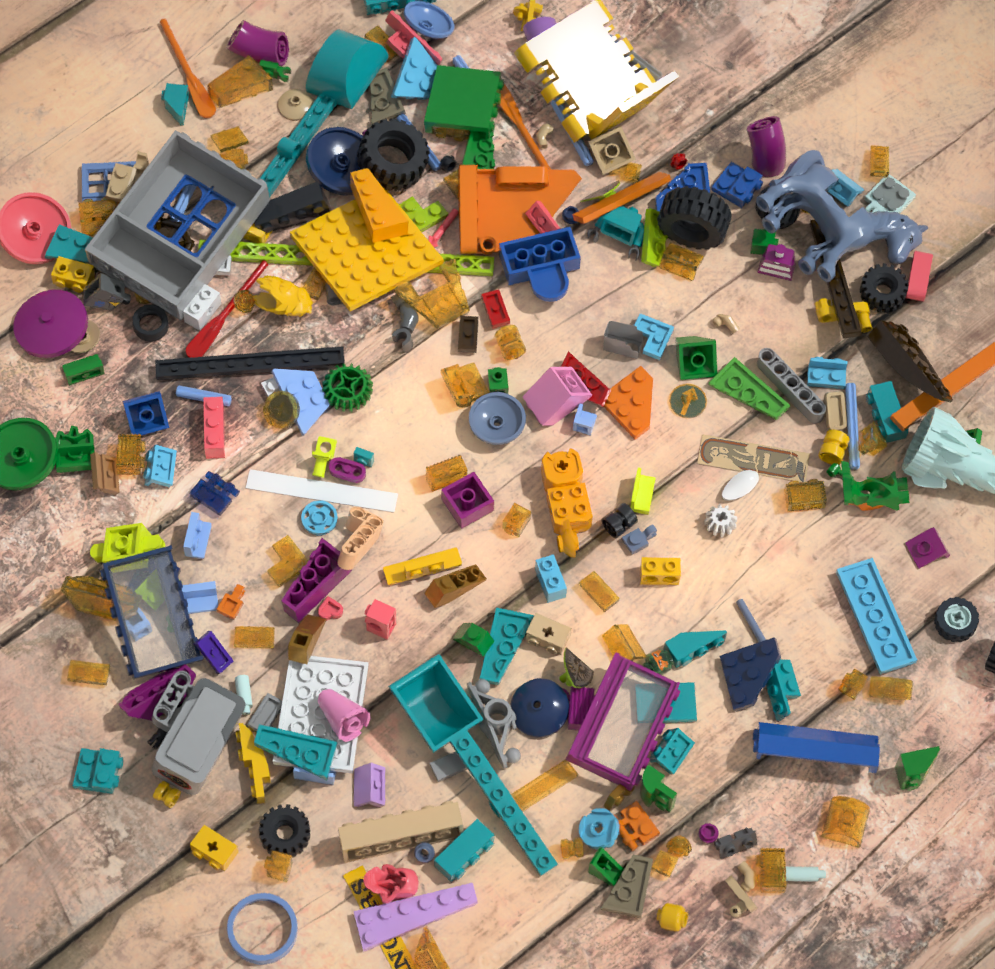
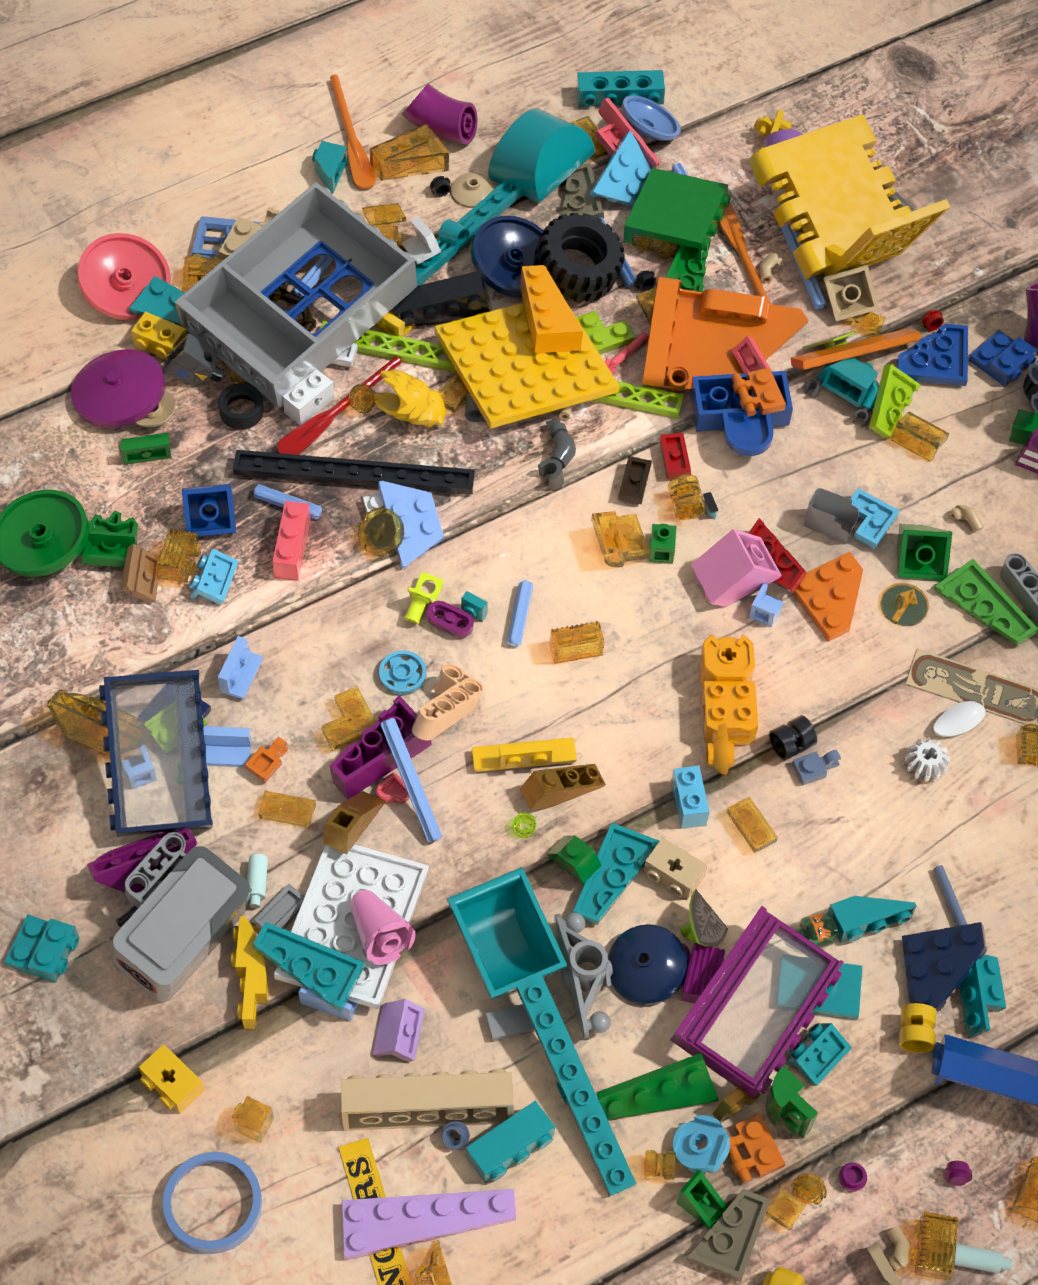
camera: 10 degrees right, 5 degrees down
(88, 672) = (61, 818): clear yellow plate -> none
(125, 542) = (146, 657): neon yellow brick -> none
(166, 794) = (125, 994): yellow wheel -> none
(210, 496) = (270, 625): clear blue plate -> none
(214, 652) = (228, 818): dark purple plate -> none
(265, 161) = (423, 244): none -> white panel
(269, 106) = (440, 186): none -> black plate
(275, 70) = (456, 148): green plate -> none
(278, 818) = (266, 1053): black tyre -> none
(322, 490) = (413, 640): white sticker -> none
(343, 601) = (411, 780): none -> light blue axle
(352, 378) = (479, 510): green gear -> none
(380, 619) = (455, 811): coral brick -> none
(392, 882) = (401, 1169): coral head -> none
(399, 456) = (520, 613): none -> light blue axle
(430, 614) = (524, 817): none -> clear neon green bush
(441, 304) = (605, 439): clear yellow wing -> none
(467, 500) = (598, 679): magenta brick -> none
(500, 409) = (657, 575): sand blue dish -> none
(516, 520) = (657, 716): clear yellow brick -> none
(530, 348) = (711, 507): none -> black piece
(544, 785) = (635, 1066): clear yellow tile -> none
(557, 247) = (765, 391): none -> orange plate
(567, 214) = (784, 361): dark blue plate -> none
(567, 794) = (665, 1088): none -> green wing
(623, 641) = (773, 893): clear yellow panel -> none
(642, 493) = (828, 708): neon yellow panel -> none
(660, 571) = (837, 811): yellow brick -> none
(694, 218) = (945, 382): black tyre -> none
(739, 720) = (917, 1028): none -> yellow wheel
(743, 840) = (902, 1195): dark grey hinge -> none
(781, 817) = (958, 1173): none -> magenta plate

